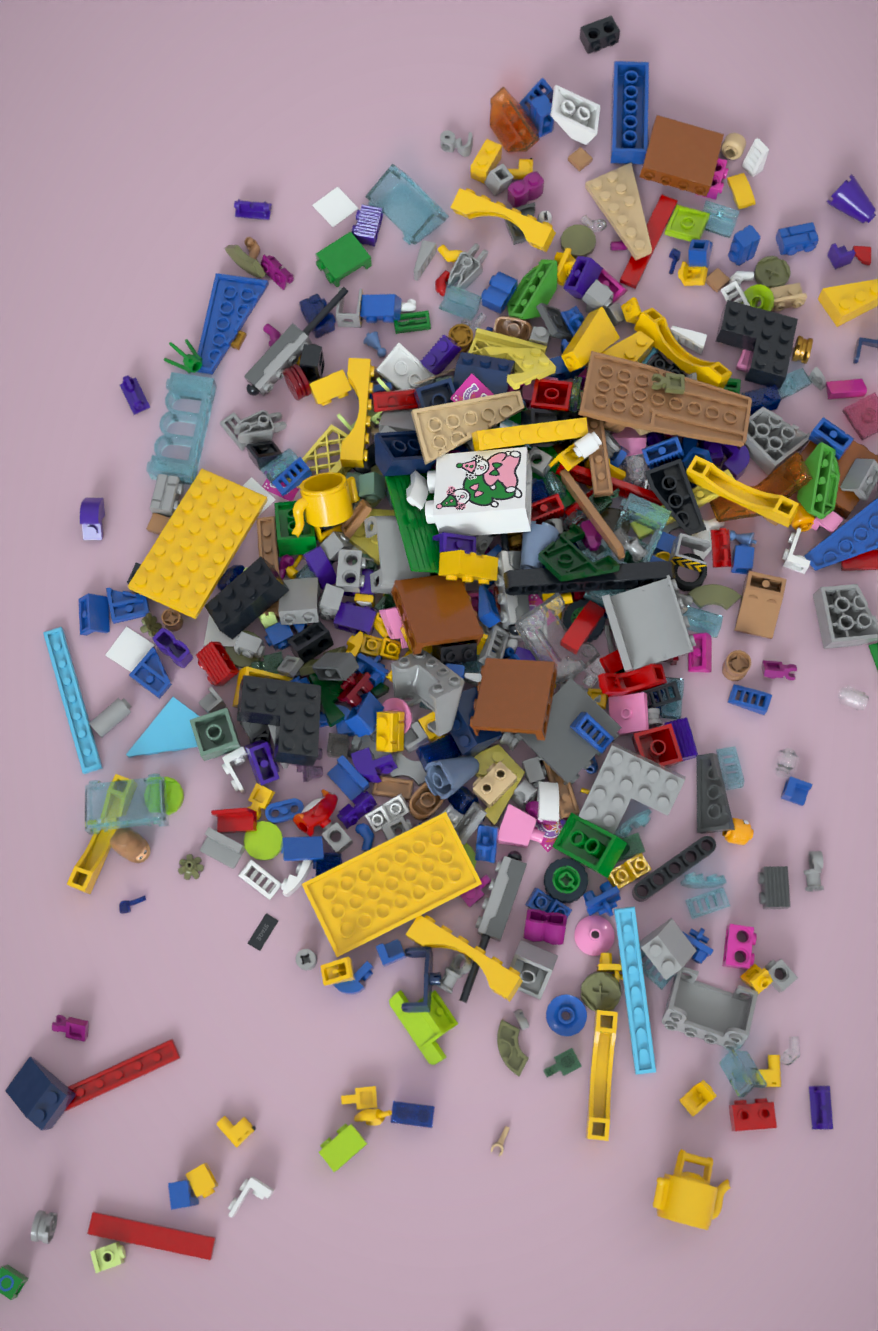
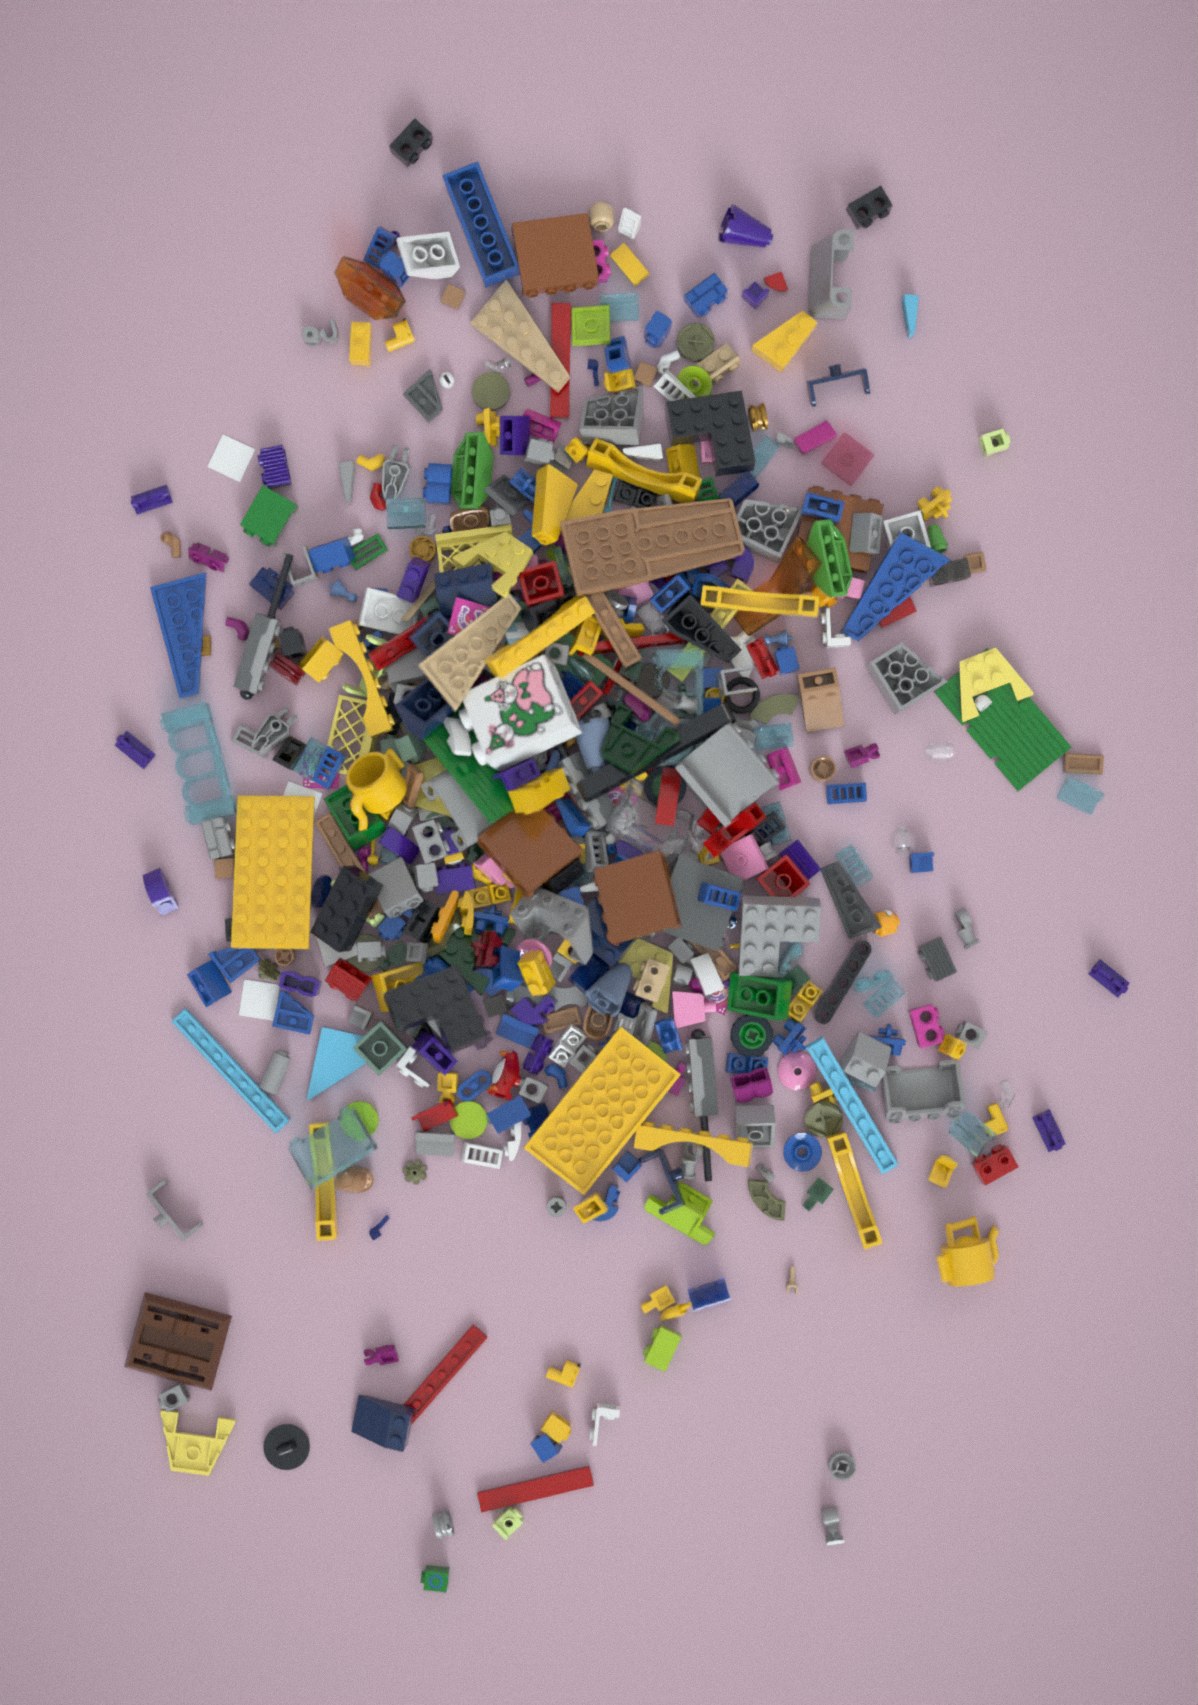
camera: 25 degrees left, 15 degrees up
(192, 362) = (175, 694): green plant -> none
(244, 261) = (172, 561): olive tile -> none
(263, 932) = (506, 1198): black sticker -> none
(331, 644) = (445, 916): none -> light orange hinge
(335, 666) = (461, 939): dark grey brick -> none
(406, 205) = (305, 428): clear light blue windscreen -> none
(472, 206) = (447, 408): yellow arch -> none
(498, 179) = (383, 360): light grey brick -> none
(525, 190) = (418, 355): magenta brick -> none
(587, 445) = (598, 623): white brick -> none
(671, 382) = (651, 522): olive plate -> none
(674, 301) = (613, 418): none -> light grey wedge
(721, 353) = (683, 459): none -> yellow panel

